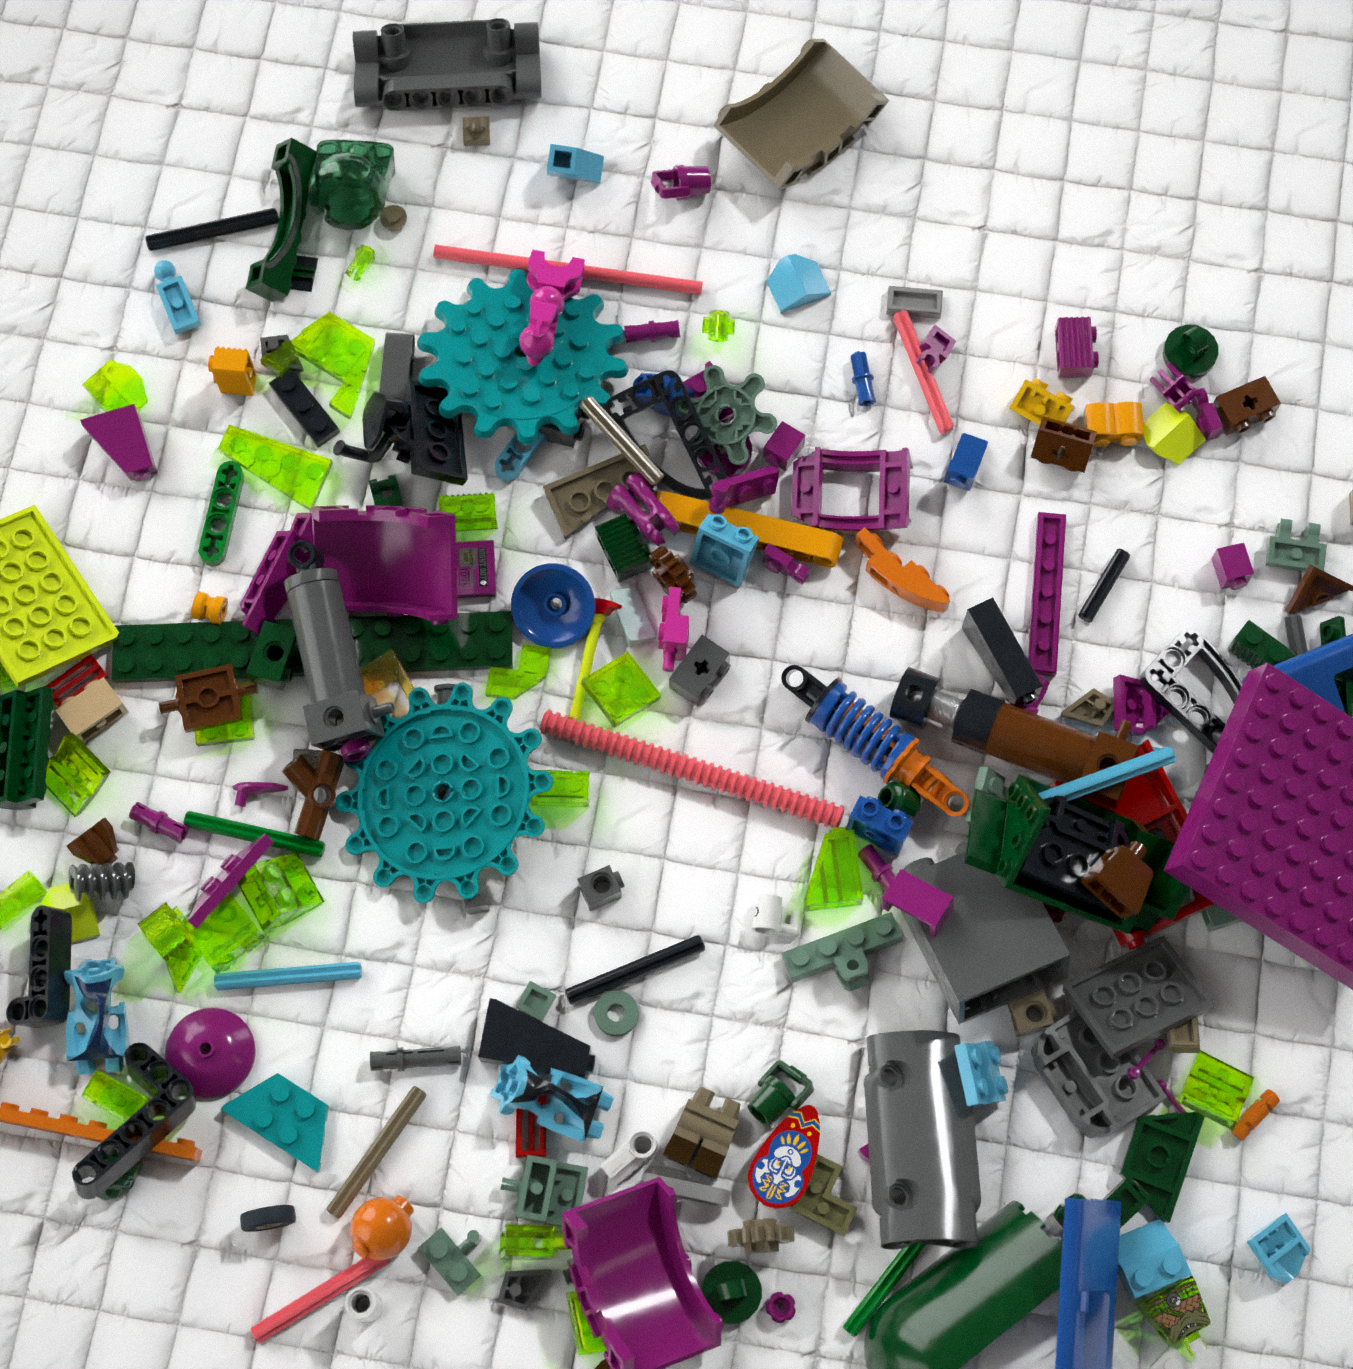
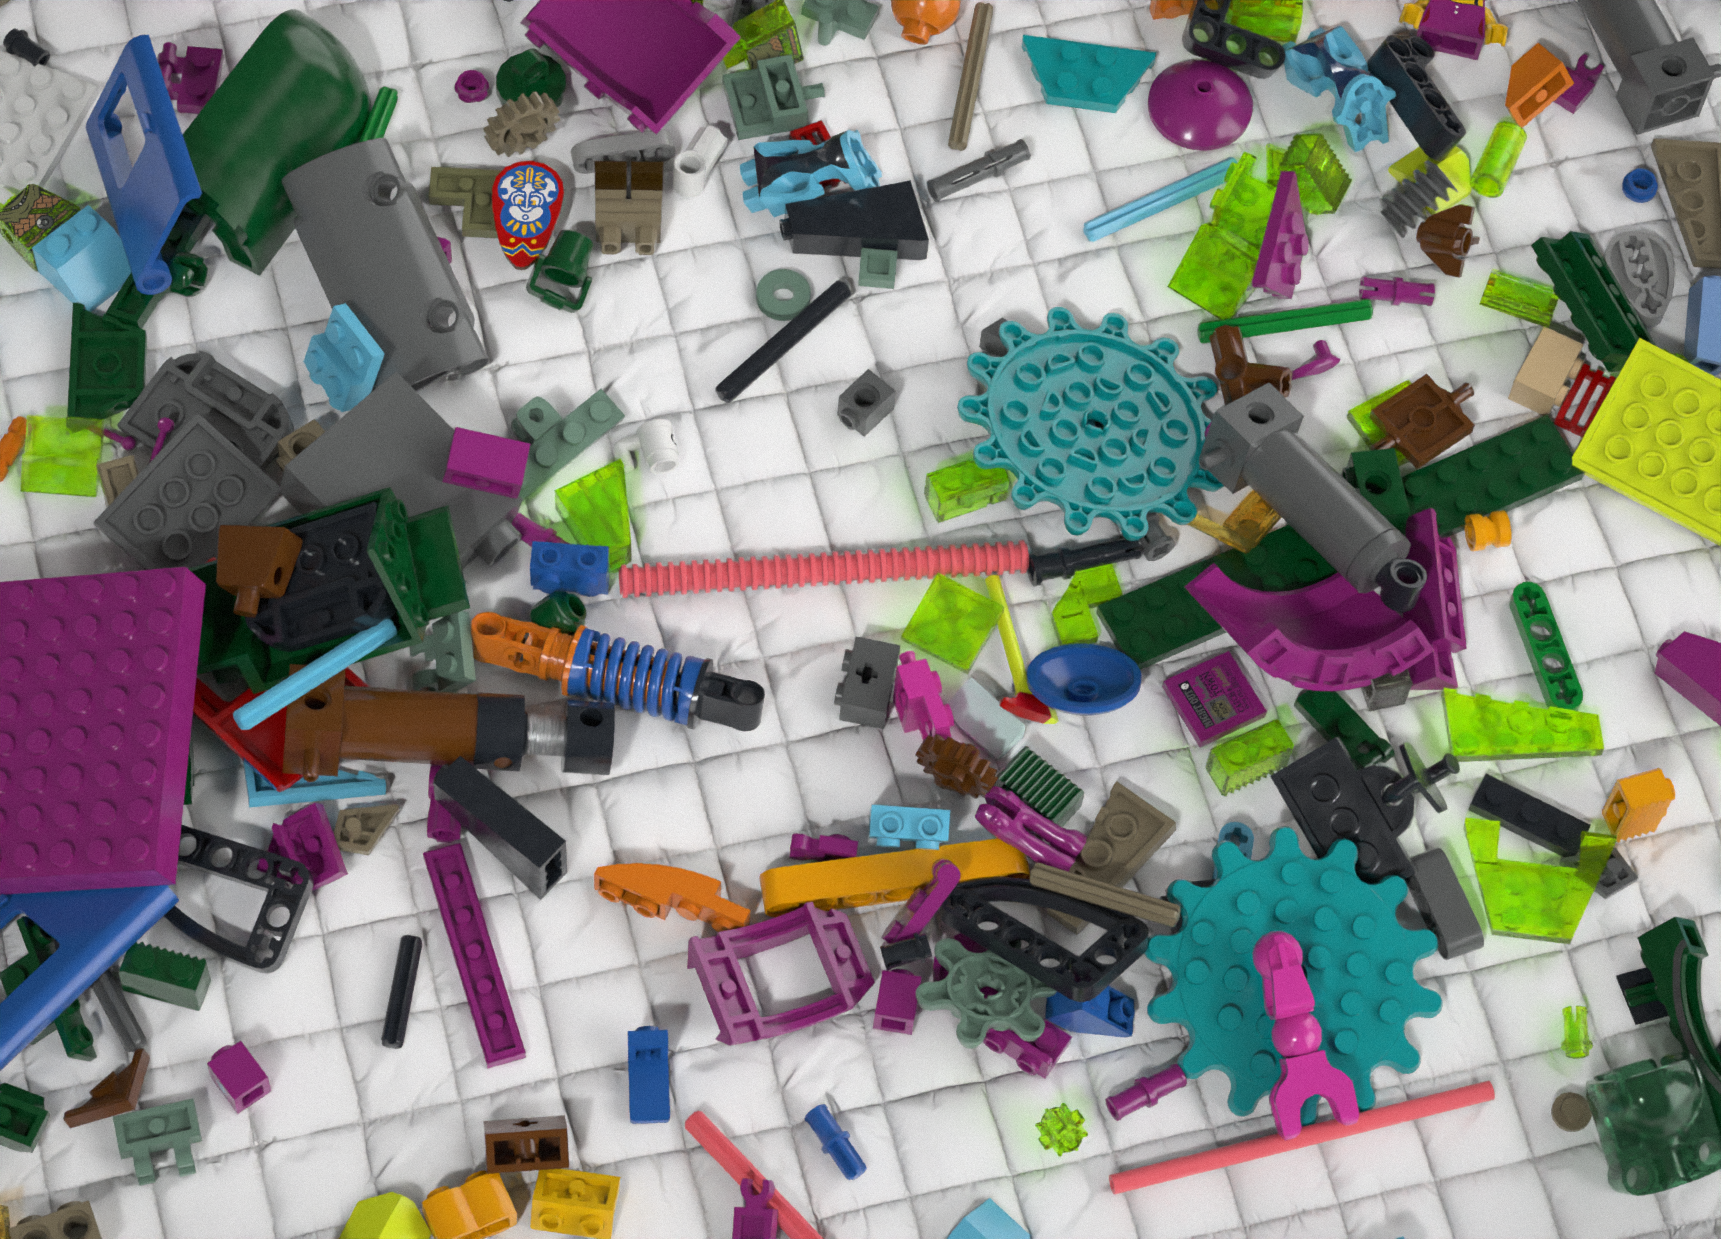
camera: 150 degrees right, 10 degrees down
(522, 705) = (1066, 562): none -> black pin
(768, 460) = (906, 951): none -> black pin

